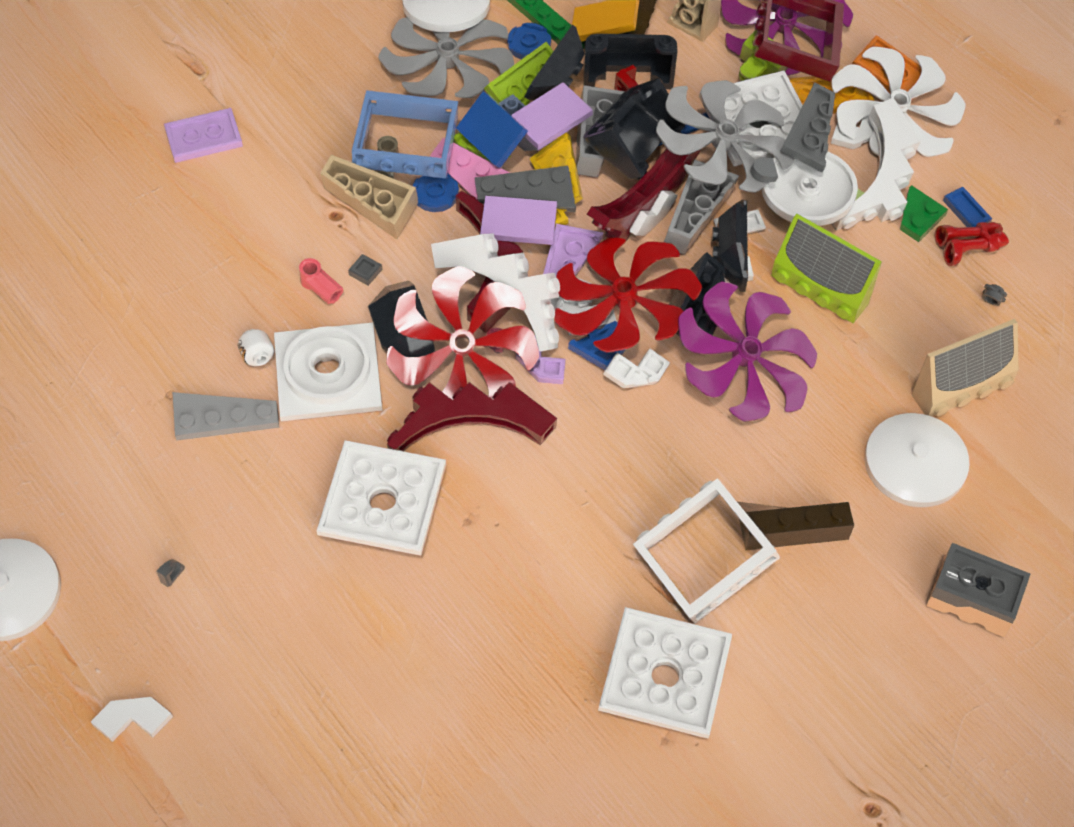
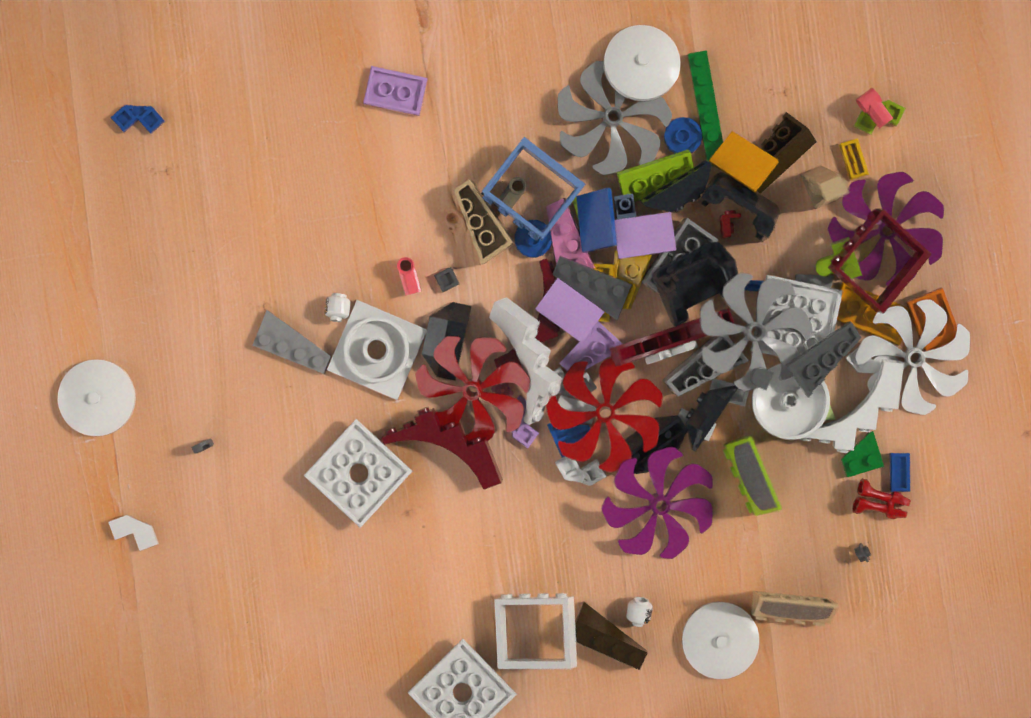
camera: 30 degrees right, 30 degrees up
(806, 473) = (639, 611): none -> white head

